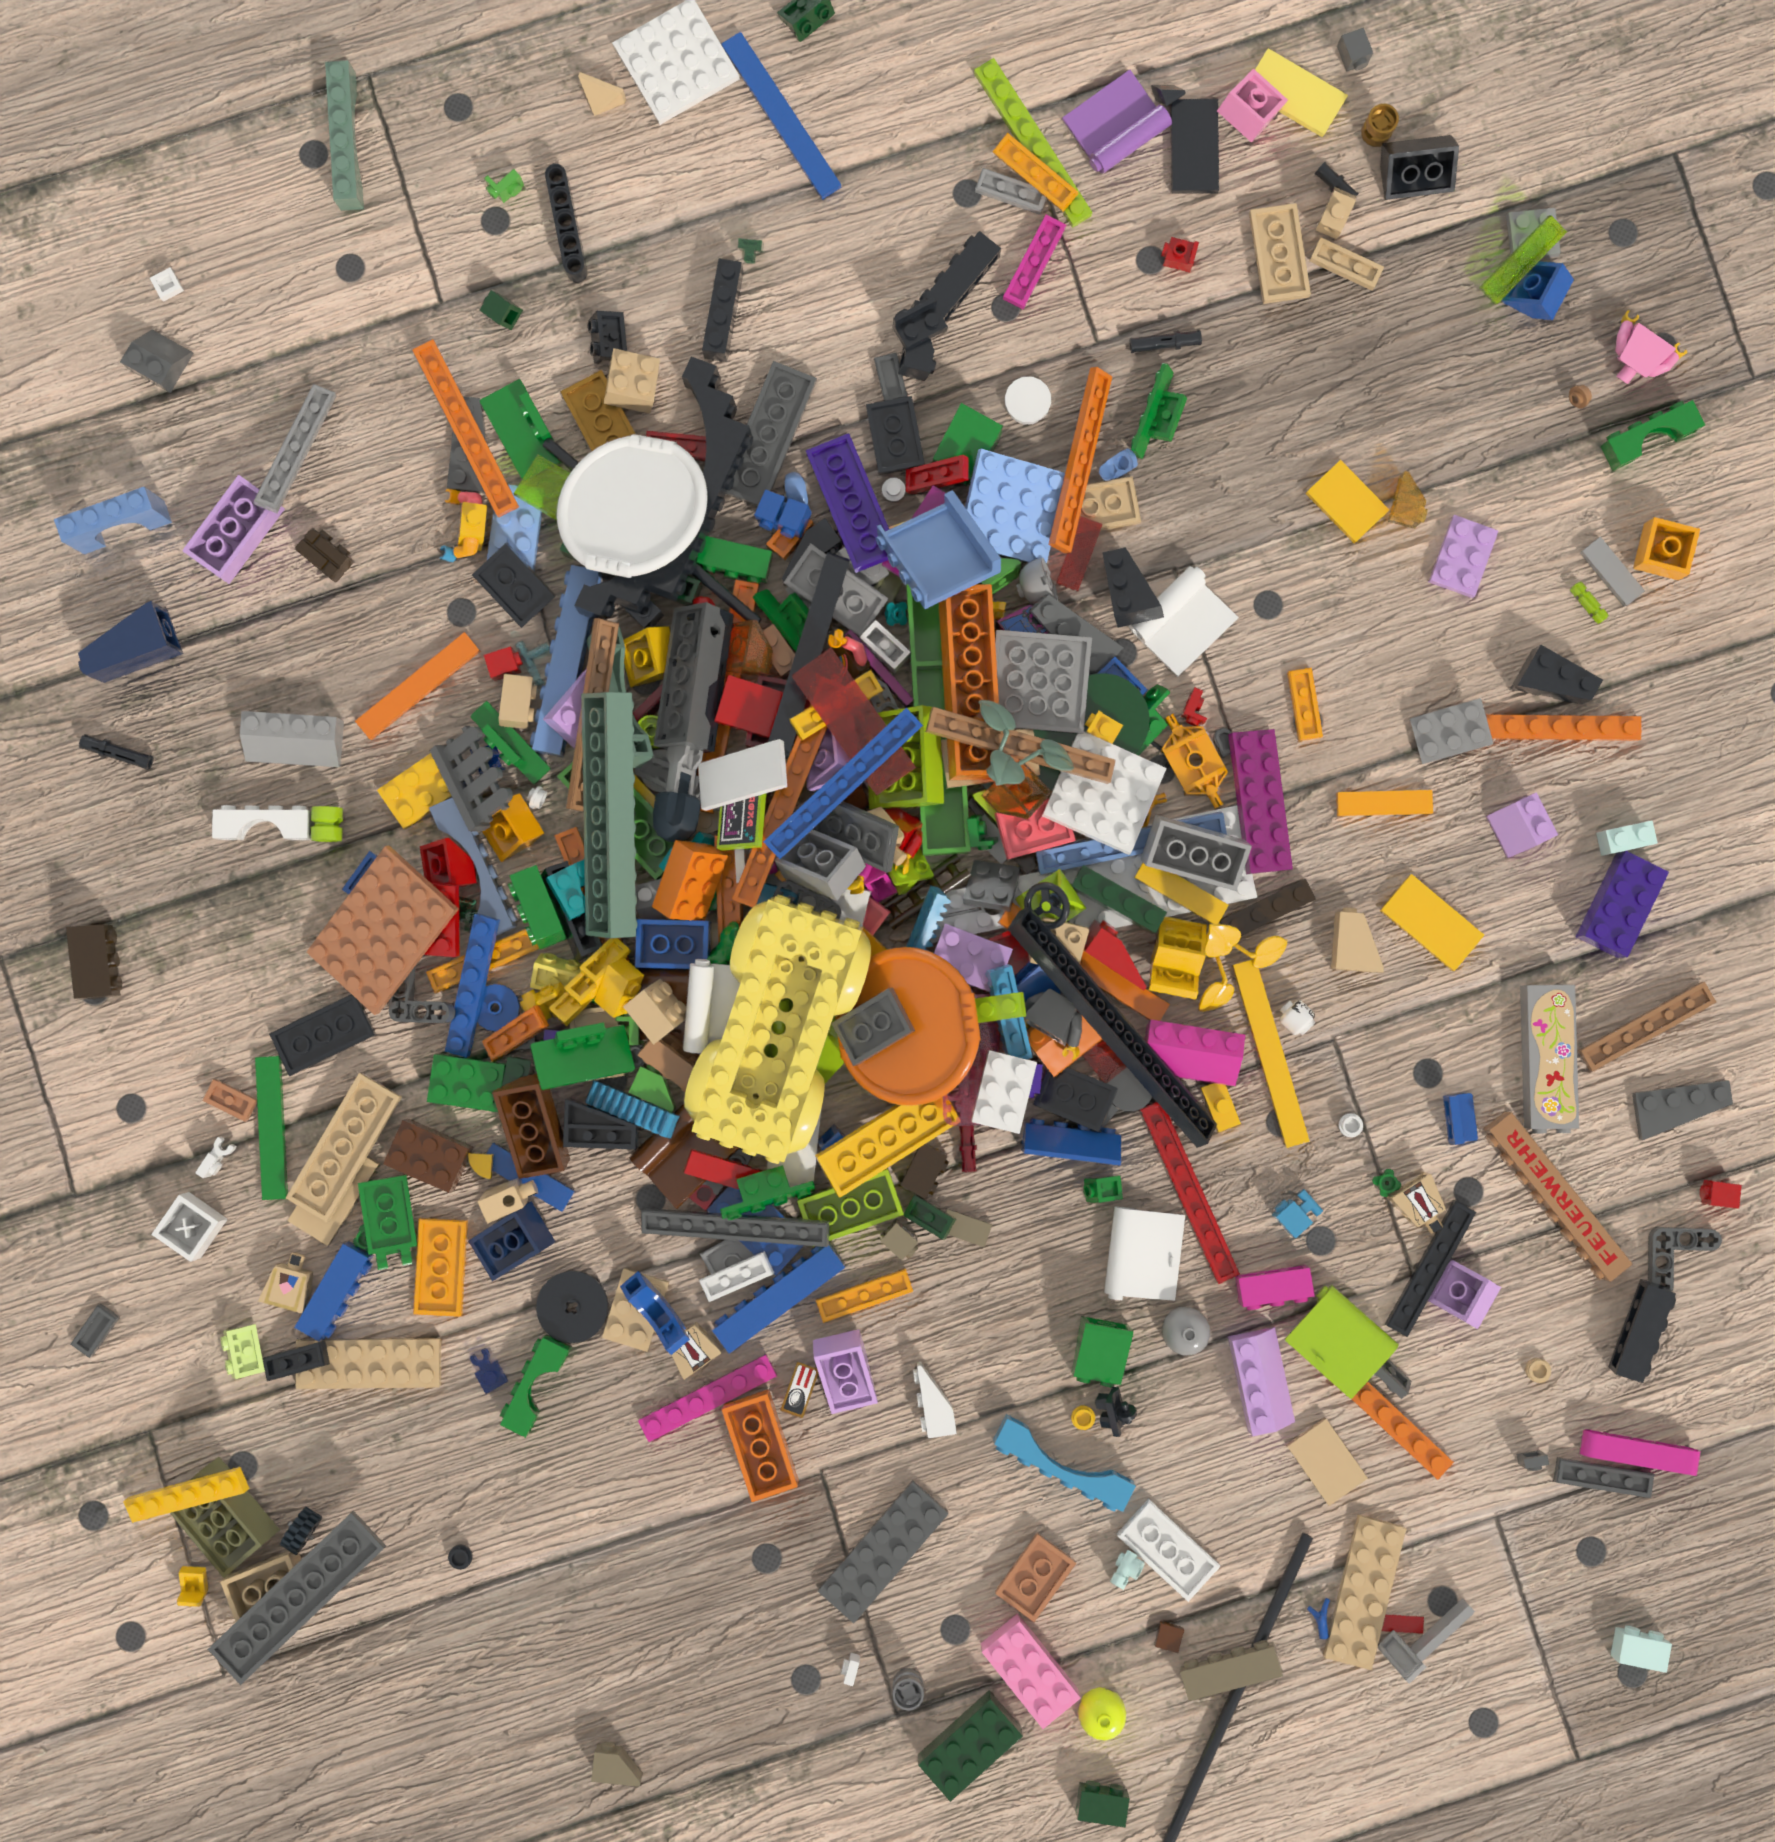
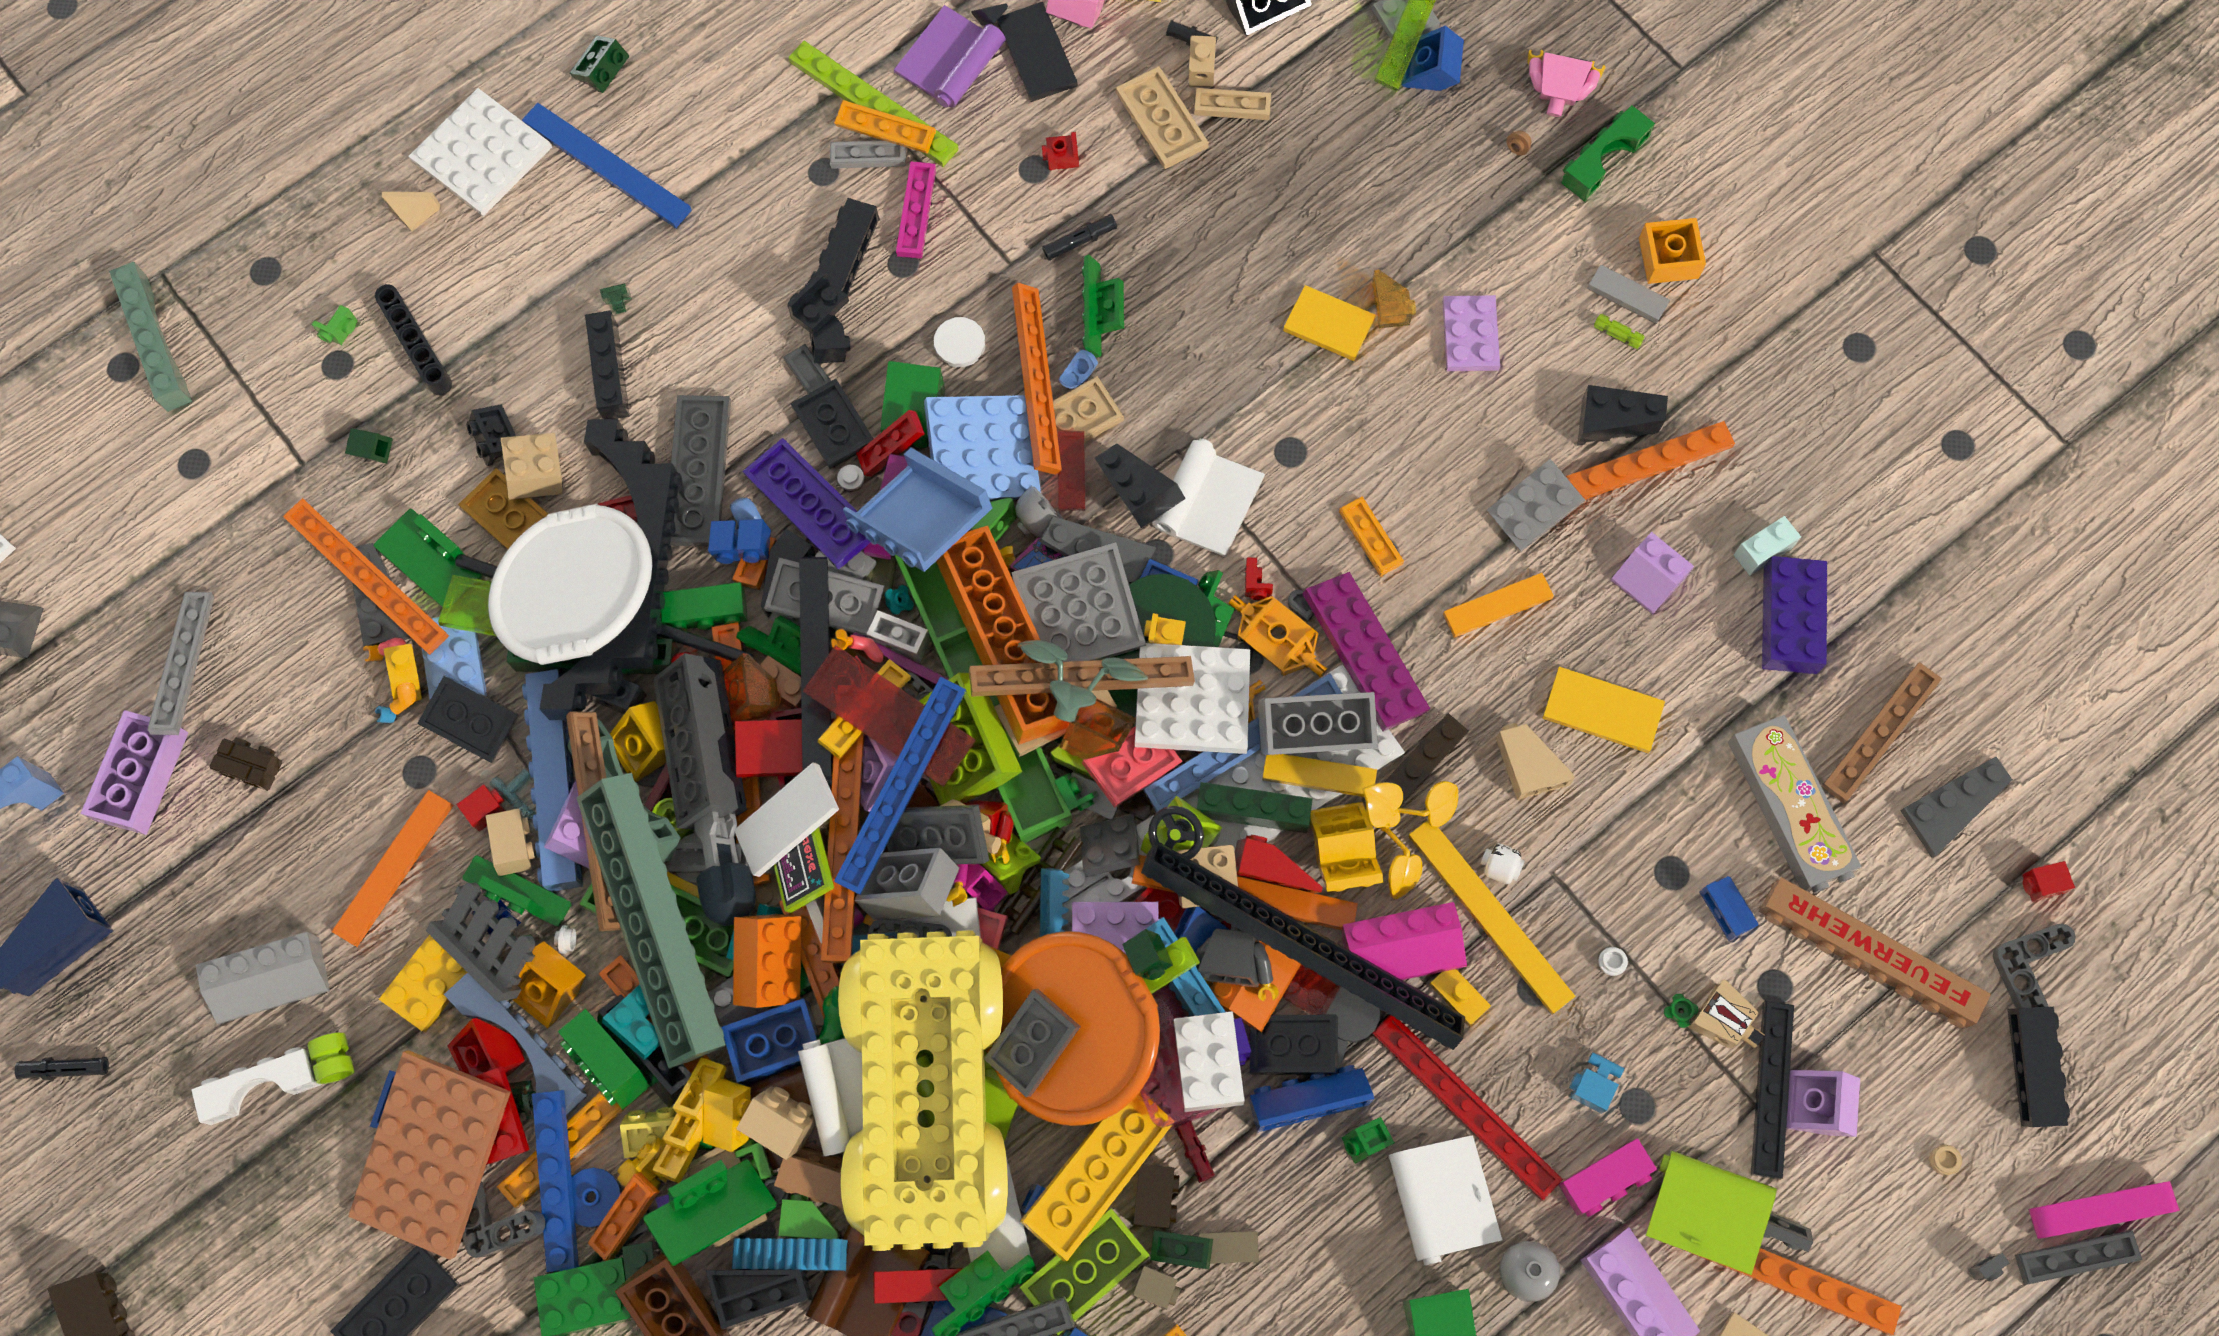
camera: 20 degrees left, 15 degrees down
(987, 998) = (1147, 955): none -> dark green brick

